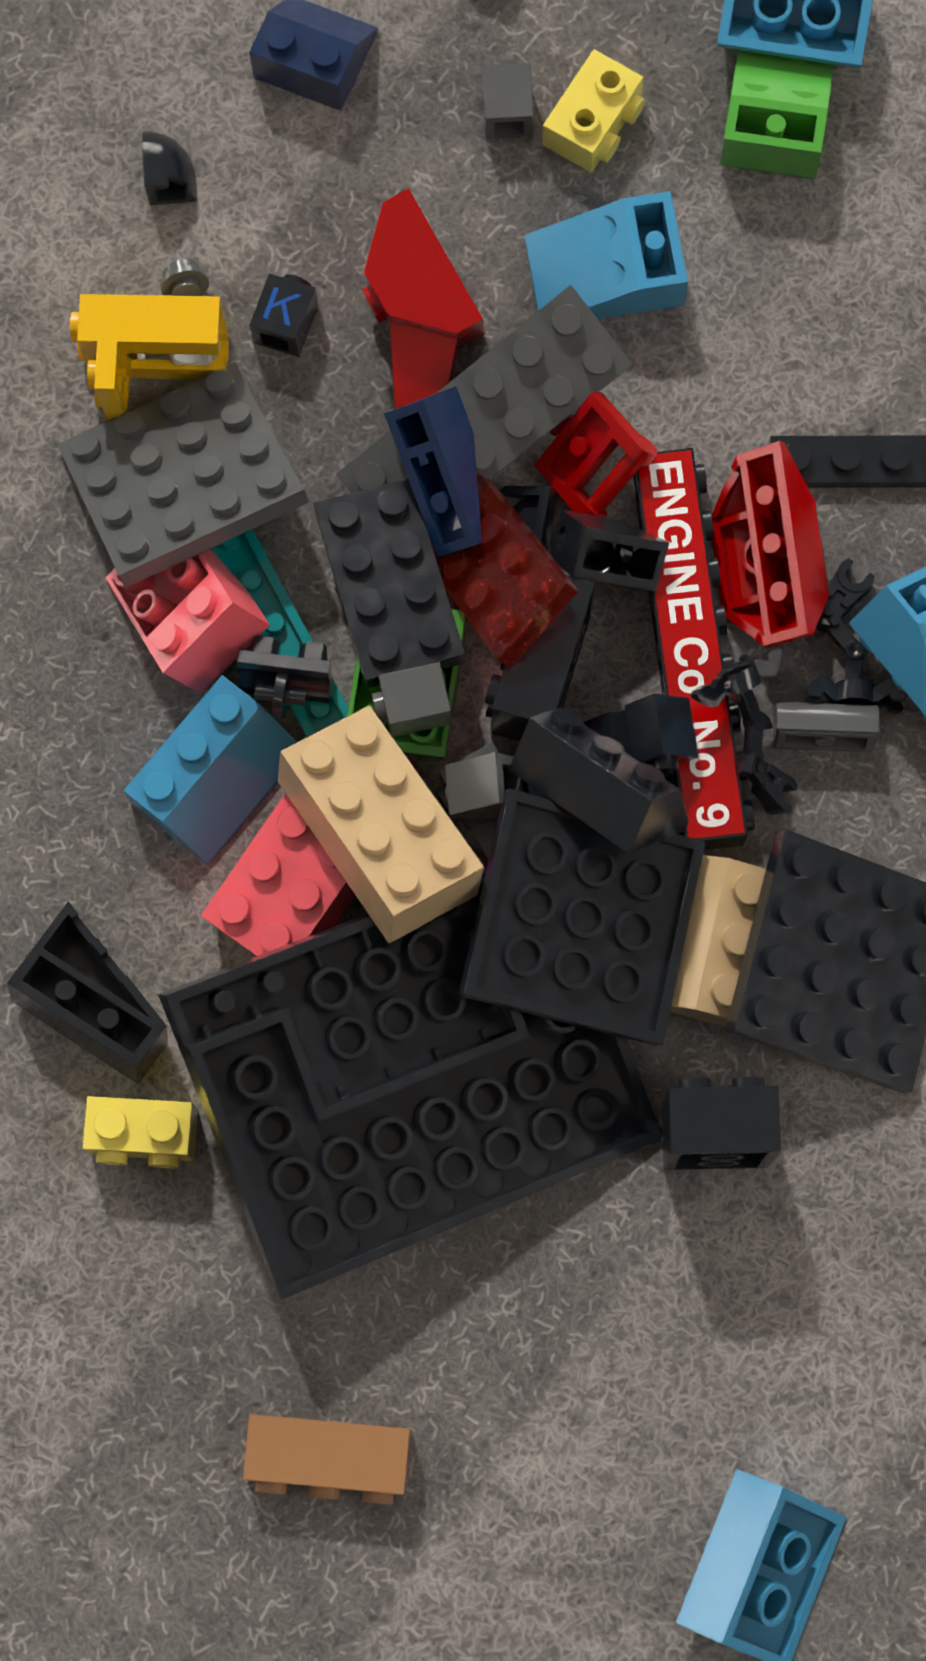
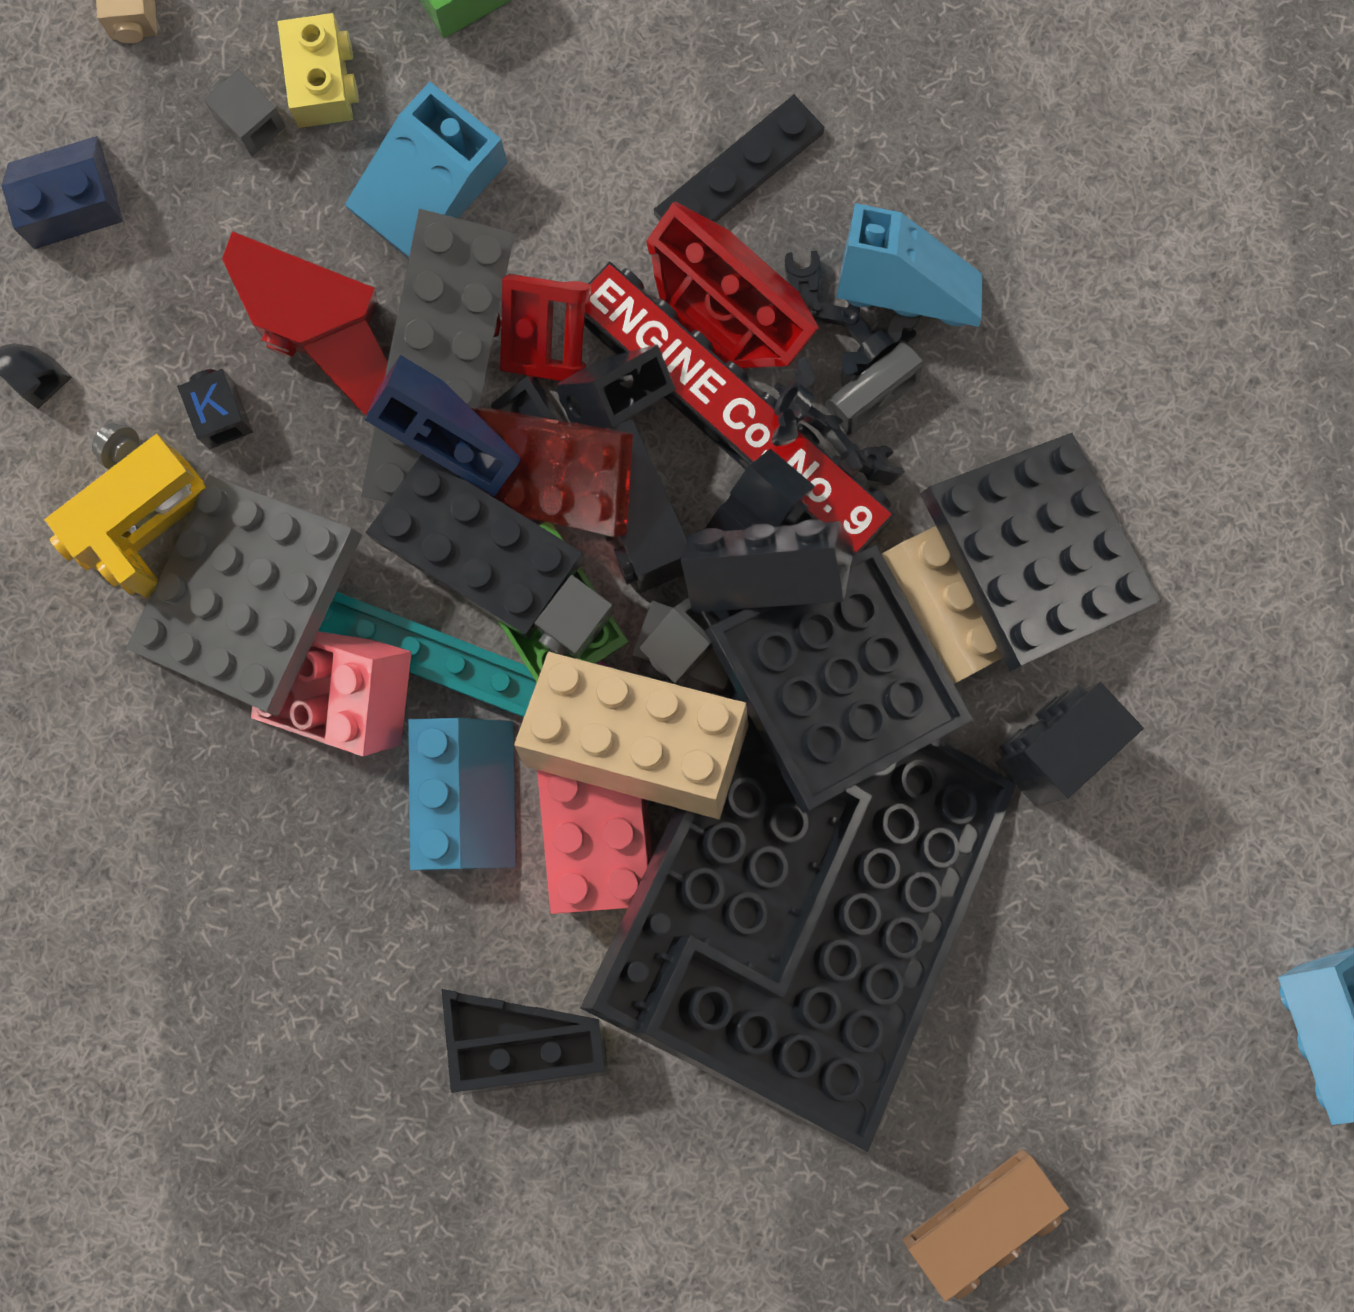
camera: 45 degrees left, 5 degrees up
(140, 1129) = (641, 1110): light yellow brick -> none
(284, 677) = (456, 683): black hips -> none

